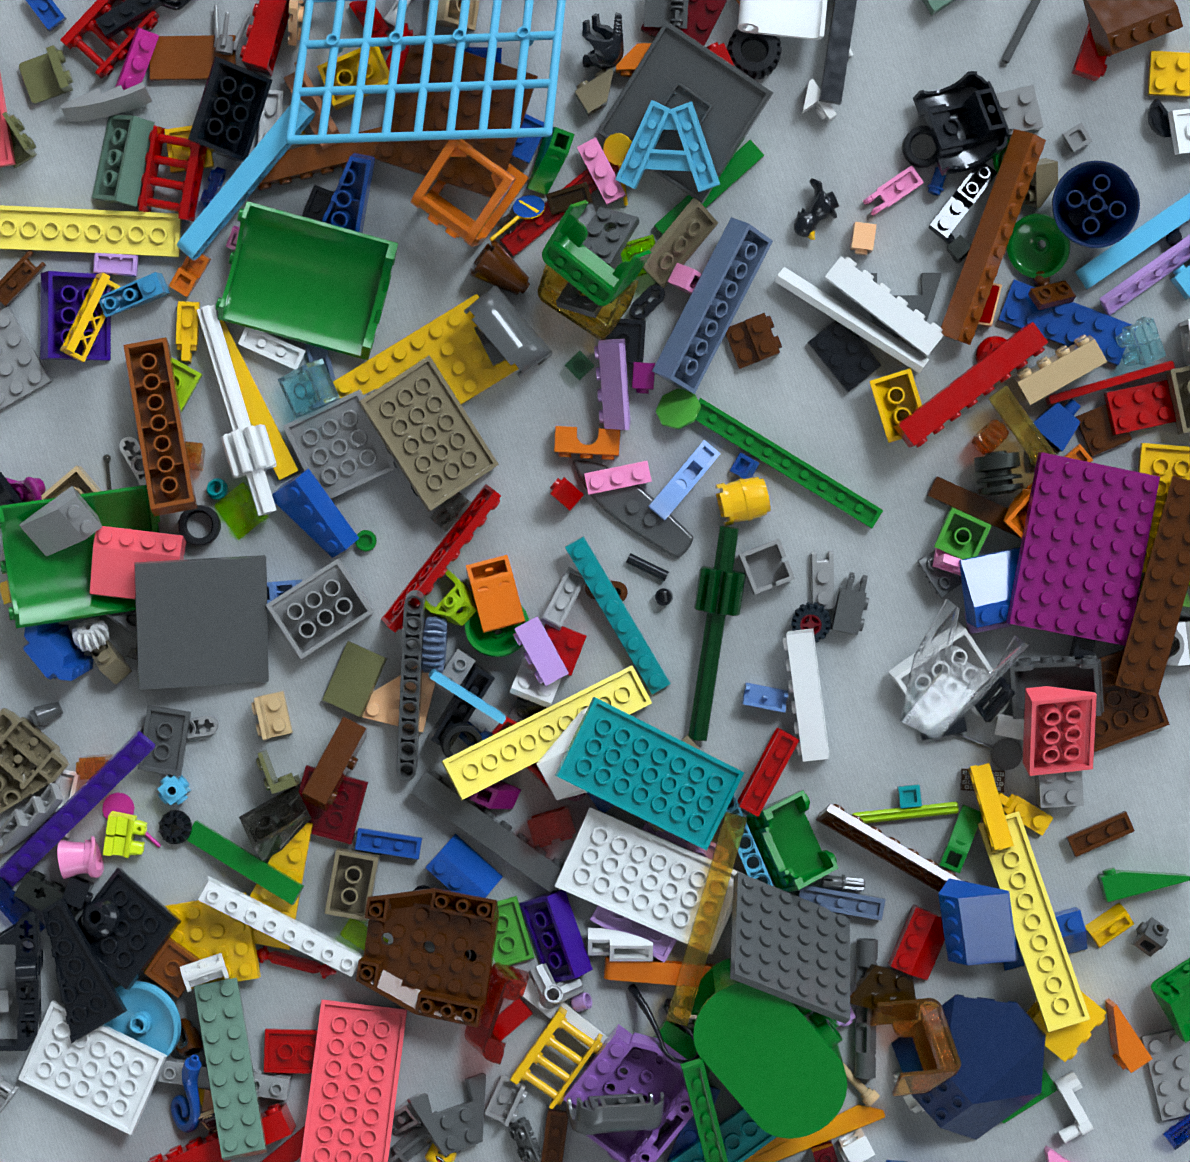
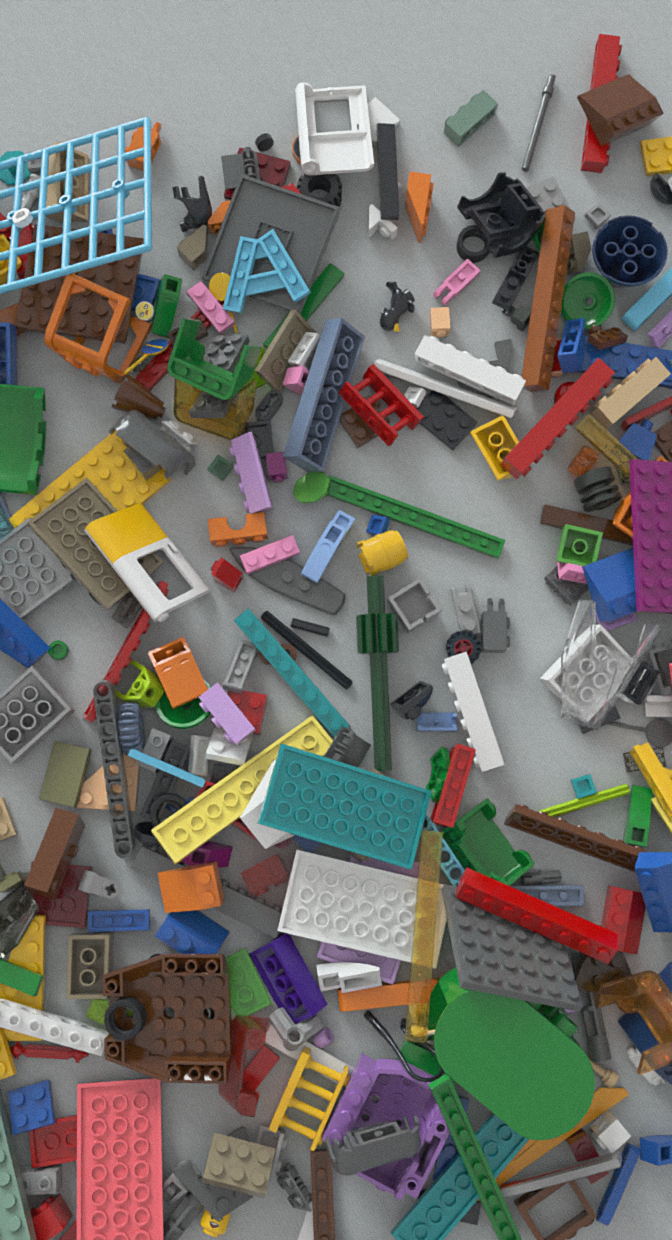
camera: 15 degrees left, 10 degrees down
(271, 1013) = (31, 1107): none -> blue plate
(372, 803) = (95, 885): none -> light grey piece
(373, 956) = (110, 1022): none -> black tyre
(407, 45) = (22, 218): none -> white tile
(432, 758) = (144, 835): none -> black piece
(468, 433) = (132, 535): none -> piece
(472, 825) = (191, 888): none -> orange slope
(474, 1107) = (238, 1165): none -> dark tan brick
(501, 686) = (197, 758): none -> white tile
(525, 163) = (145, 311): none -> tile
(531, 310) = (173, 431): none -> white hinge
(639, 592) = (307, 650): none -> black axle
(659, 596) = (325, 650): black hinge -> none
(662, 710) = (347, 748): none -> dark grey hinge
(699, 246) = (304, 350): none -> white hinge
(744, 670) = (412, 701): none -> black slope
(758, 749) = (440, 765): none -> green tile
(789, 318) = (390, 395): none -> red fence
(814, 322) = (415, 395): none -> white plate
(827, 922) = (537, 915): none -> red brick
(866, 83) = (418, 202): none -> orange slope
(937, 183) = (491, 270): blue pin -> none
(1008, 298) = (572, 346): none -> blue slope

